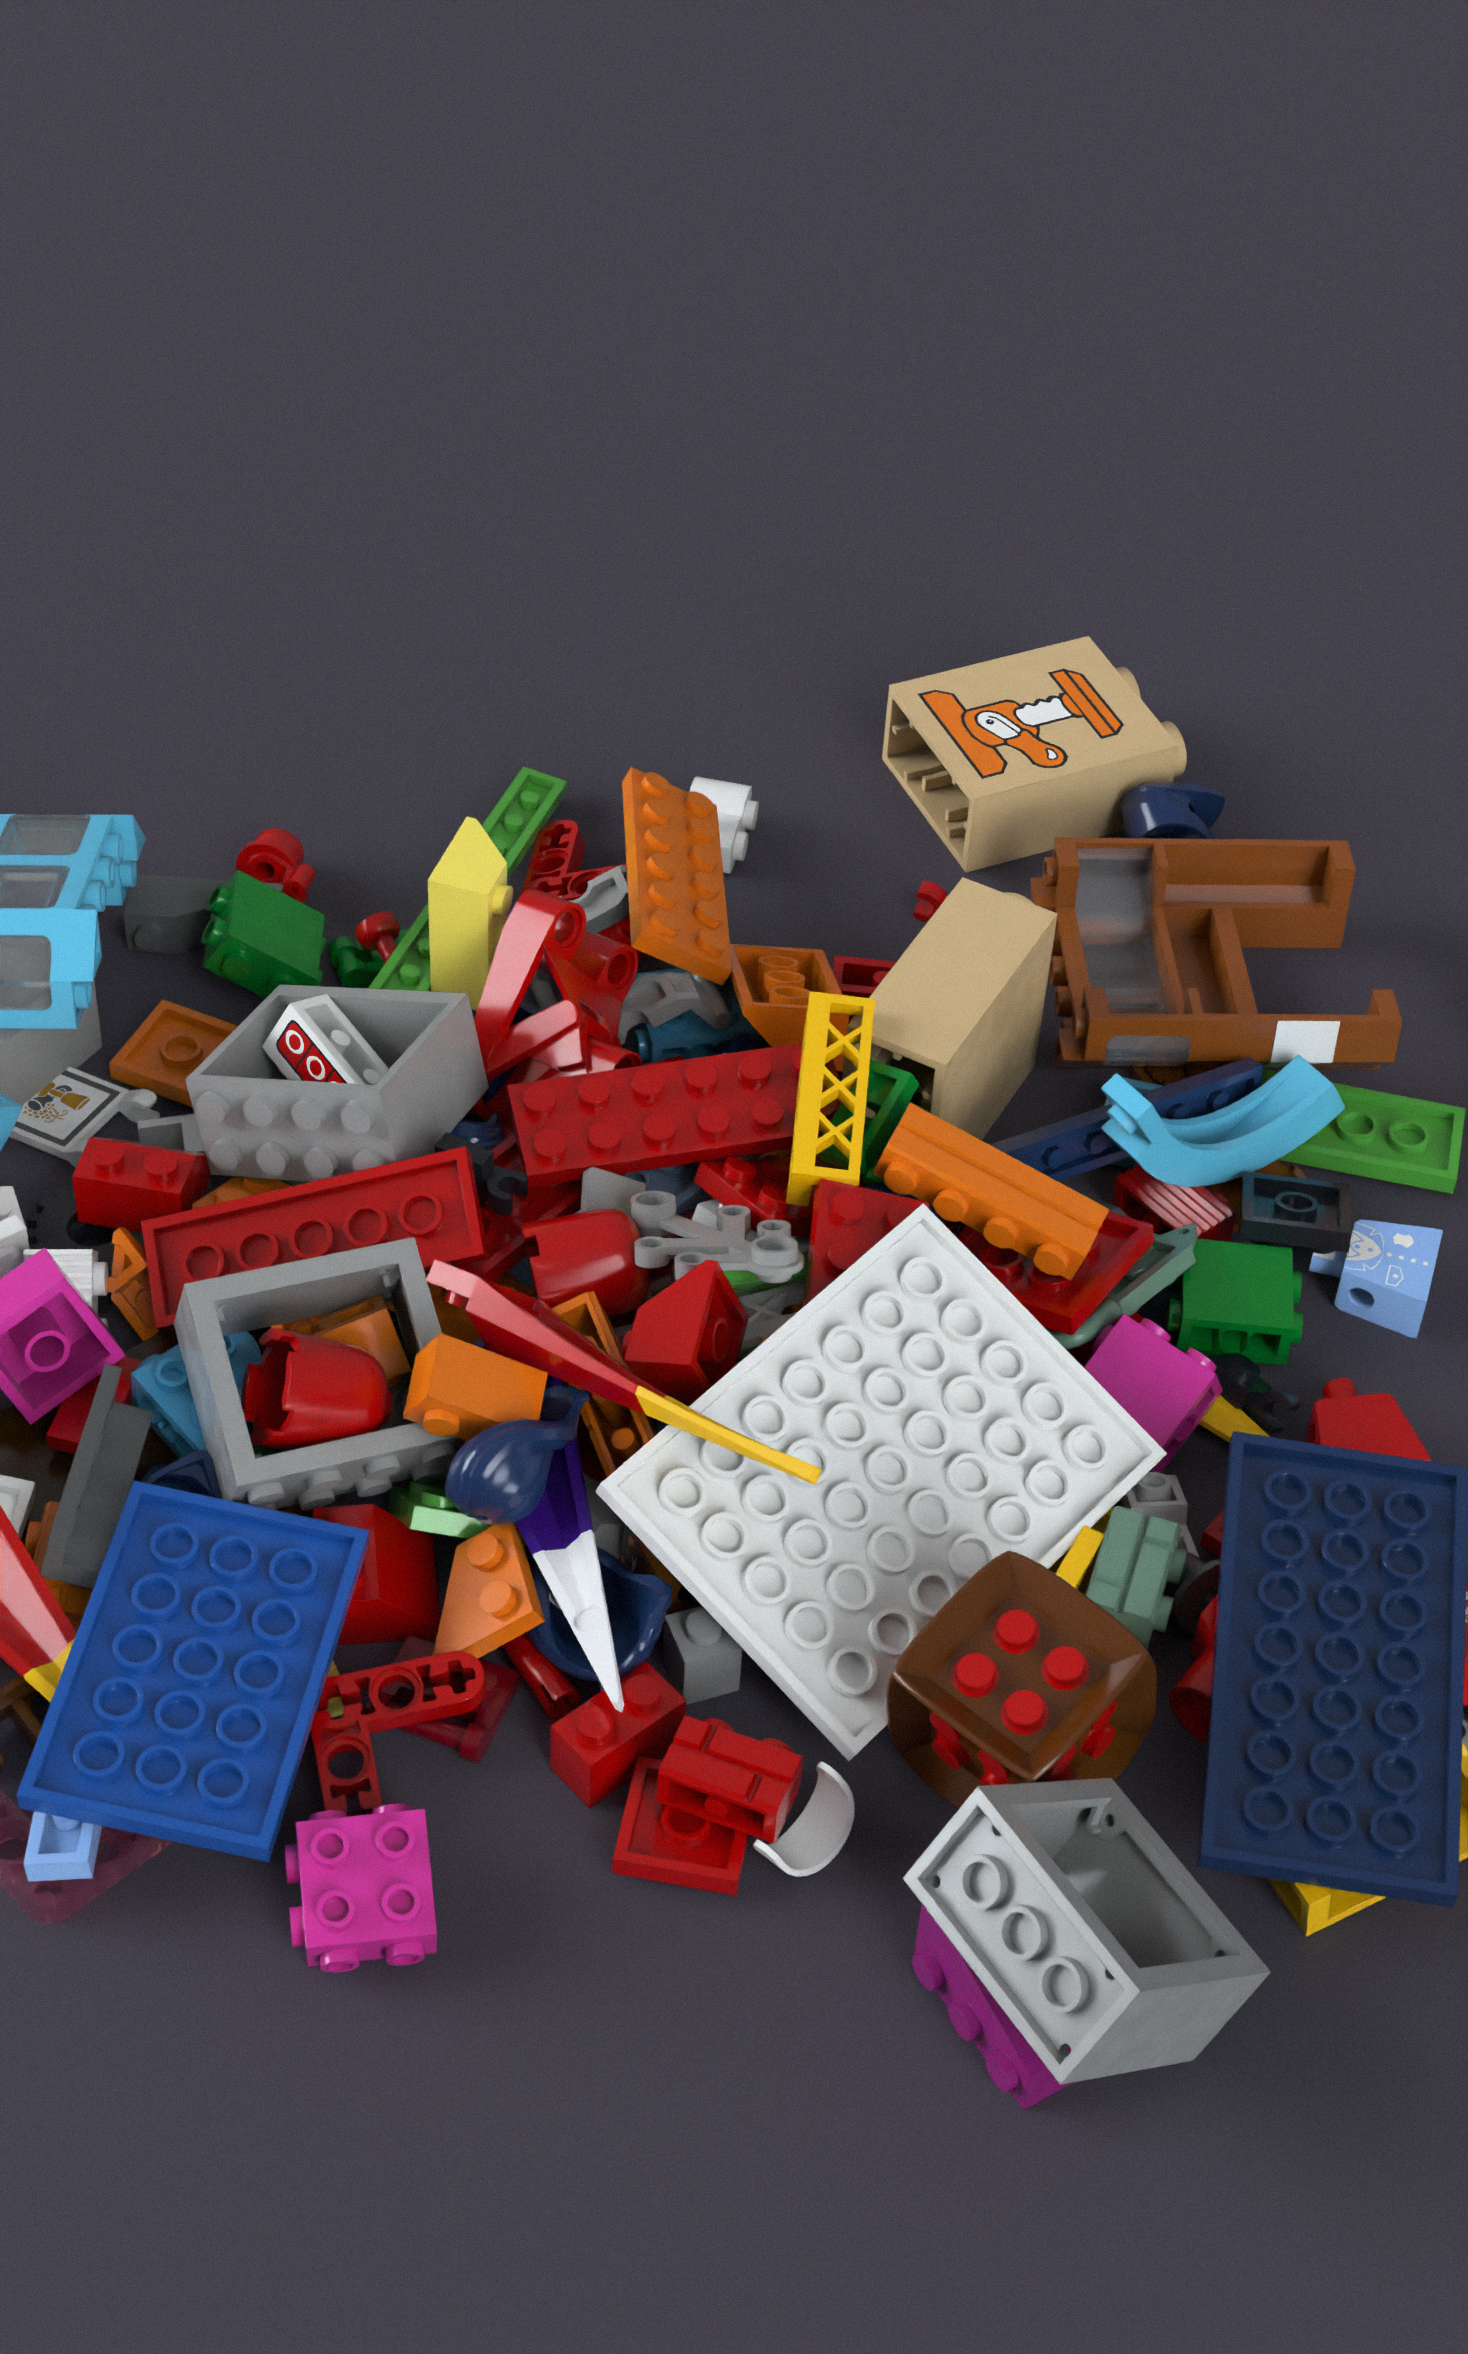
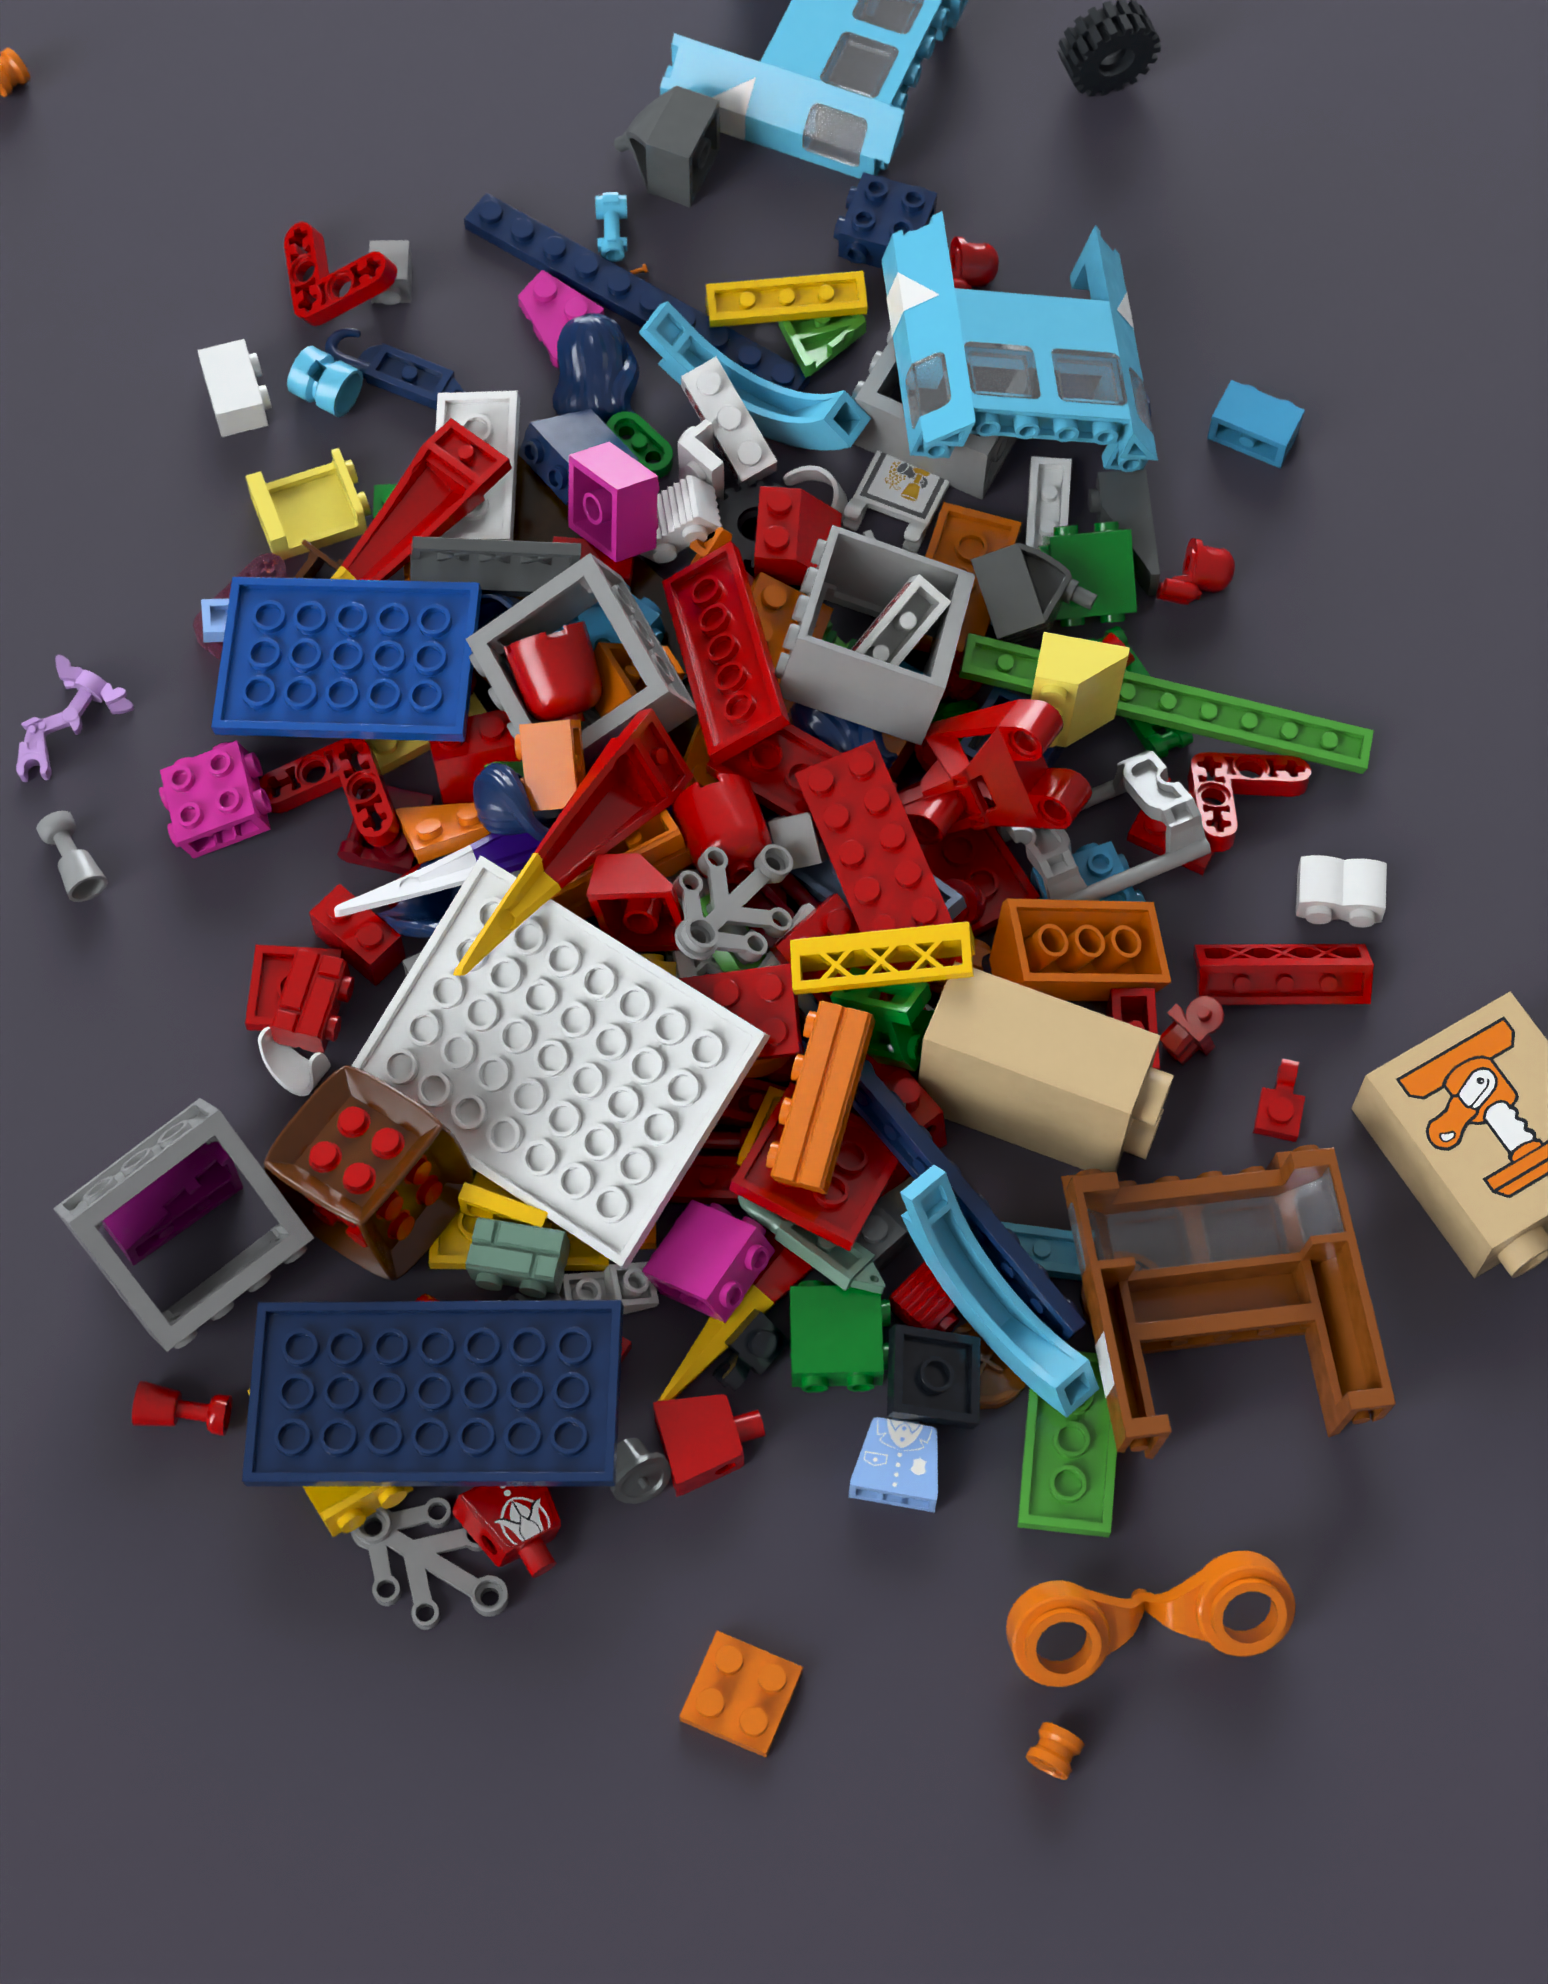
camera: 85 degrees right, 20 degrees up
(41, 1165) = (820, 474): none -> white helmet
(93, 783) = (1255, 423): none -> dark azure brick
(116, 2057) = (90, 687): none -> lavender piece
(150, 979) = (1047, 497): none -> white plate
(292, 953) = (1026, 591): none -> dark grey piece
(439, 2091) = (77, 867): none -> light grey piece
(491, 1180) = (798, 739): black plate -> none
(675, 876) = (1202, 845): orange plate -> none
(814, 877) = (1284, 973): none -> red fence
(874, 939) = (1192, 1031): none -> red hips
(1170, 810) = (1436, 1252): dark blue helmet -> none
(1317, 2027) = (164, 1406): none -> red piece

